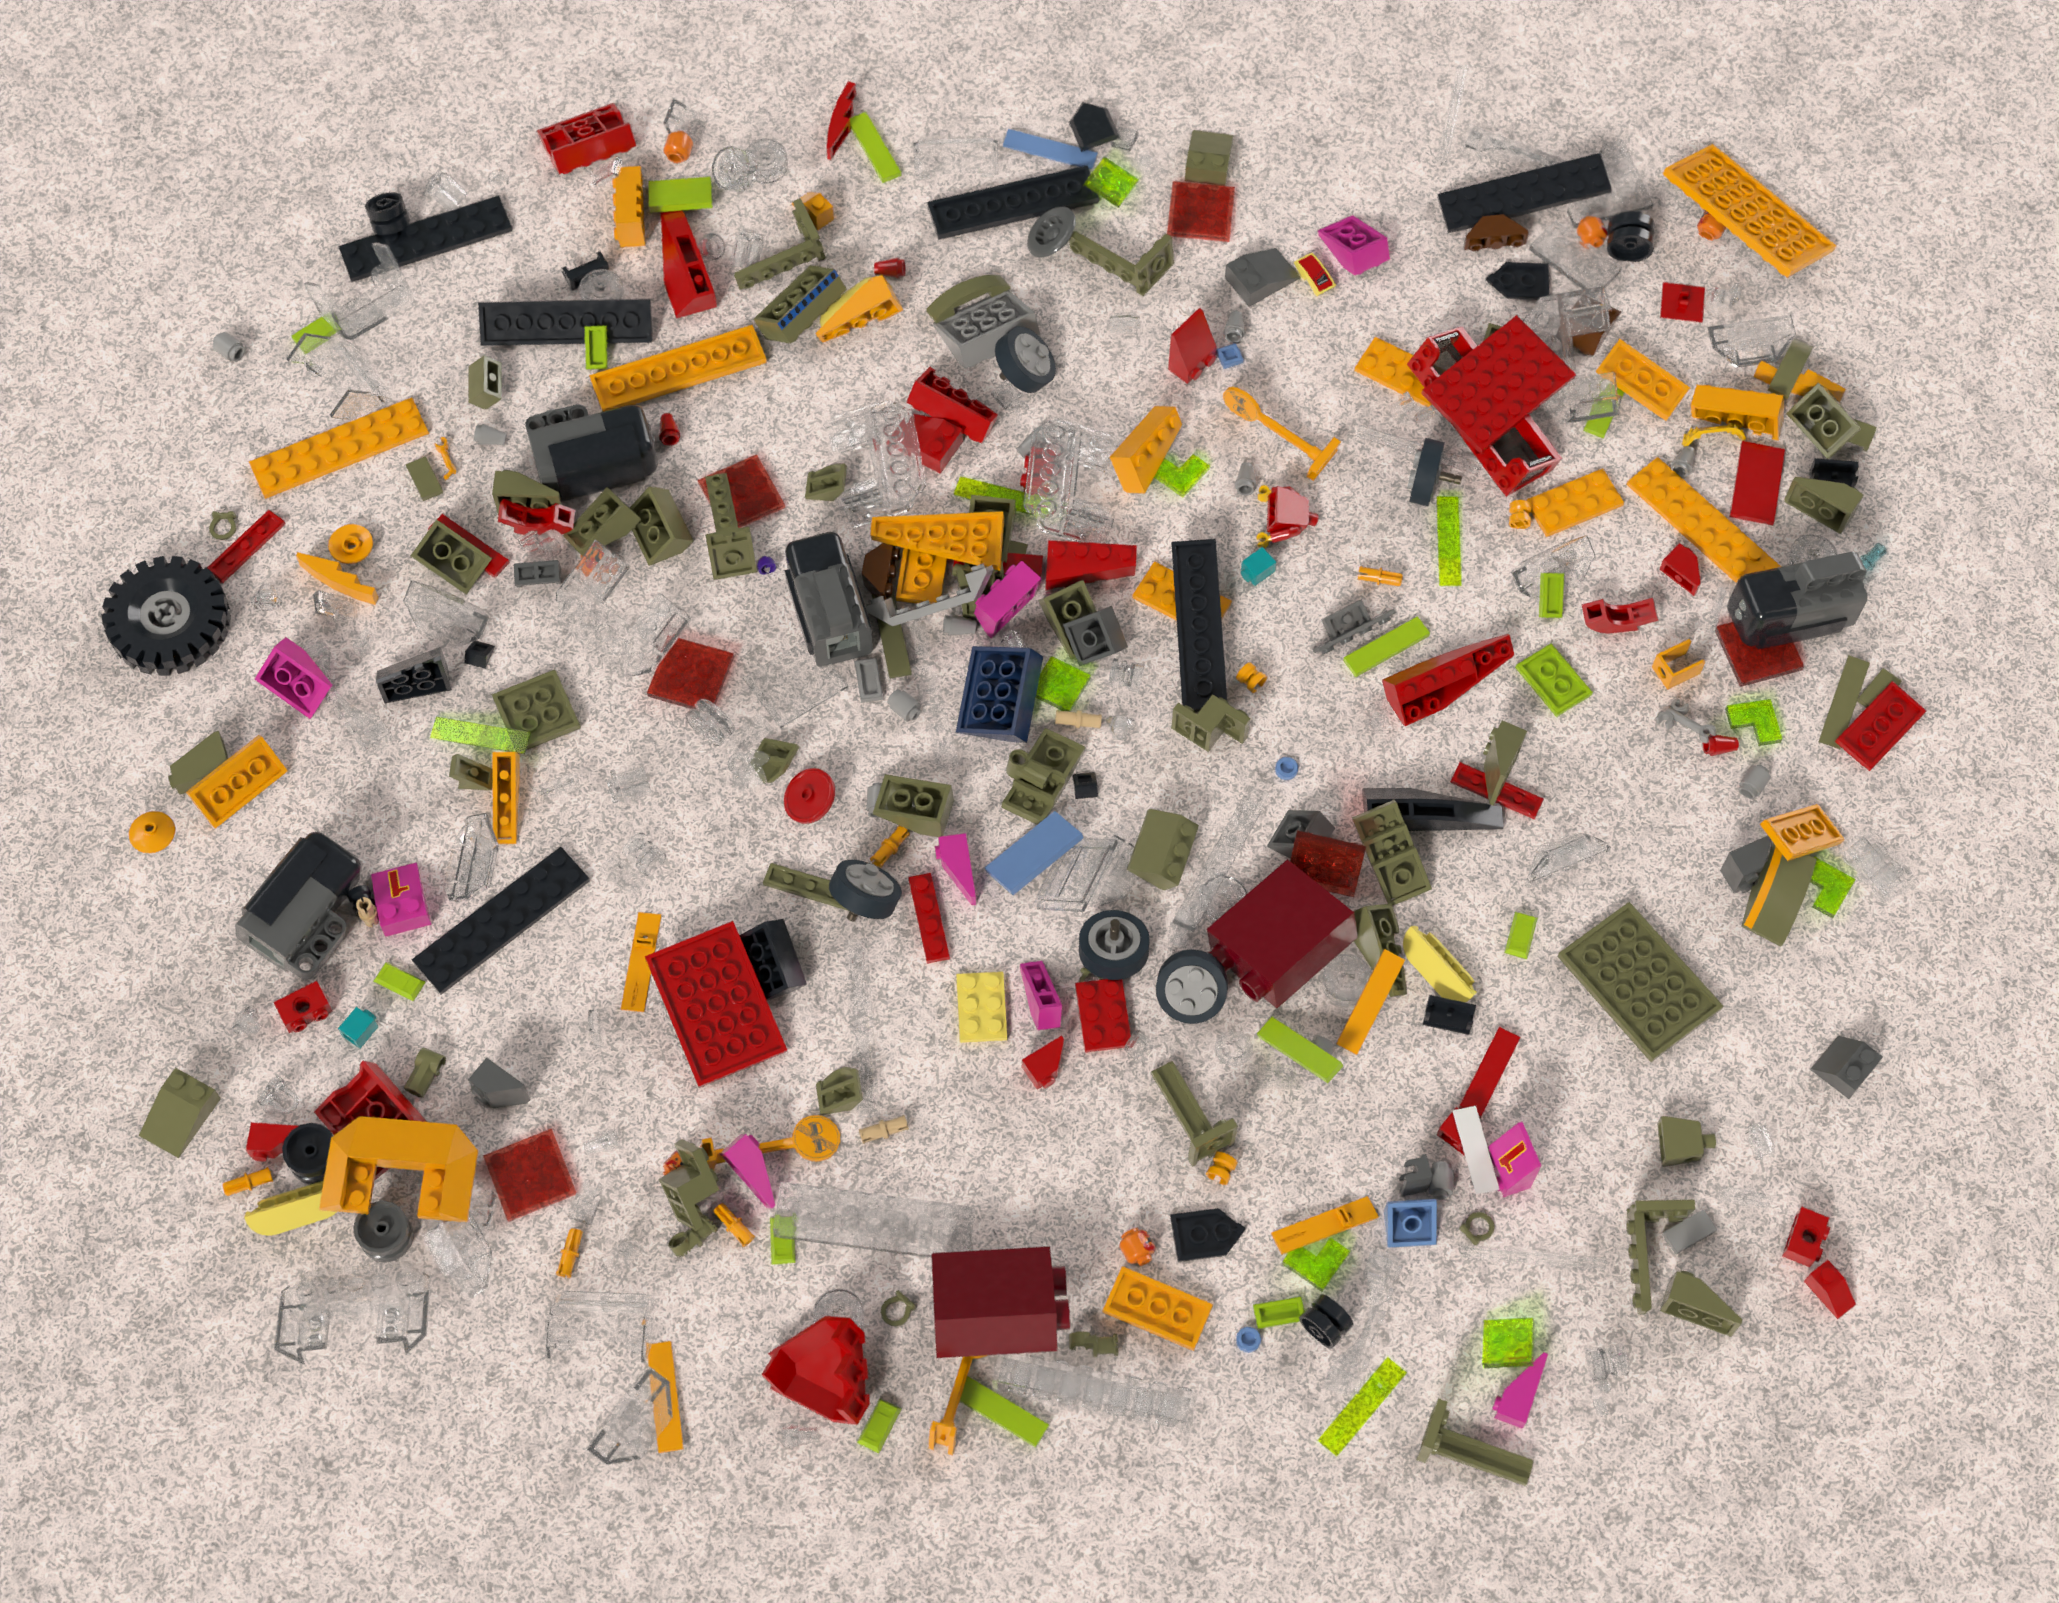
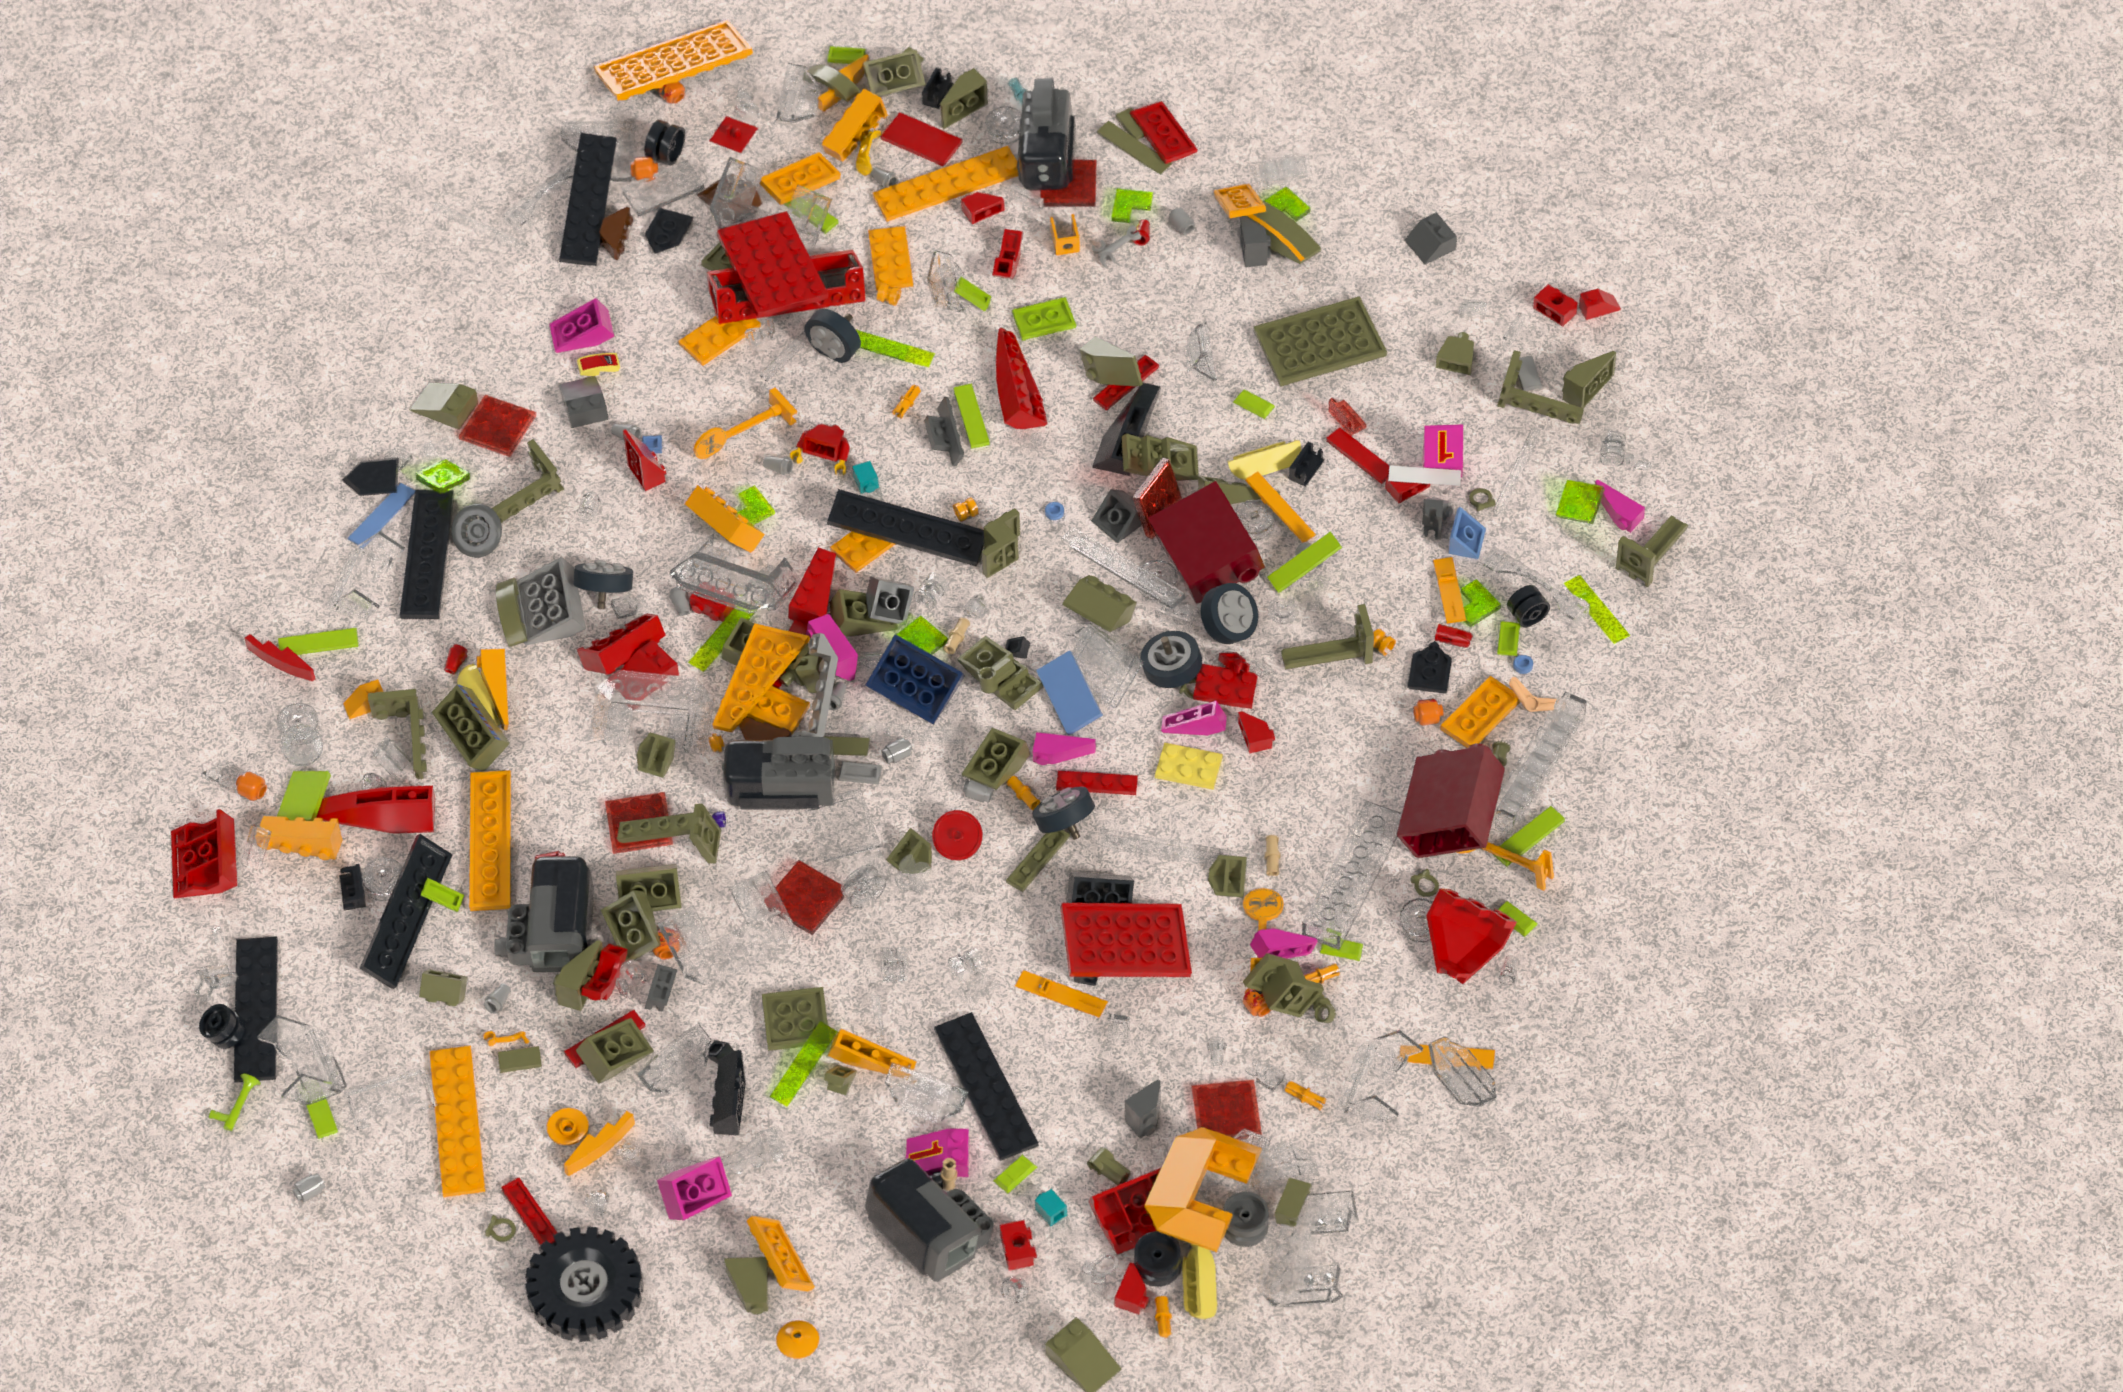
camera: 70 degrees left, 10 degrees down
(294, 259) = (230, 1120): none -> lime piece
(410, 1273) = (1292, 1202): none -> olive hinge
(860, 531) = (716, 742): none -> light orange plate
(1136, 1013) = (1234, 661): none -> red plate
(1189, 1364) = (1529, 701): none -> light nougat piece
(1259, 1243) = (1453, 636): none -> red hinge
(1539, 1041) = (1346, 416): none -> clear red panel
(1843, 373) = (844, 55): none -> lime tile

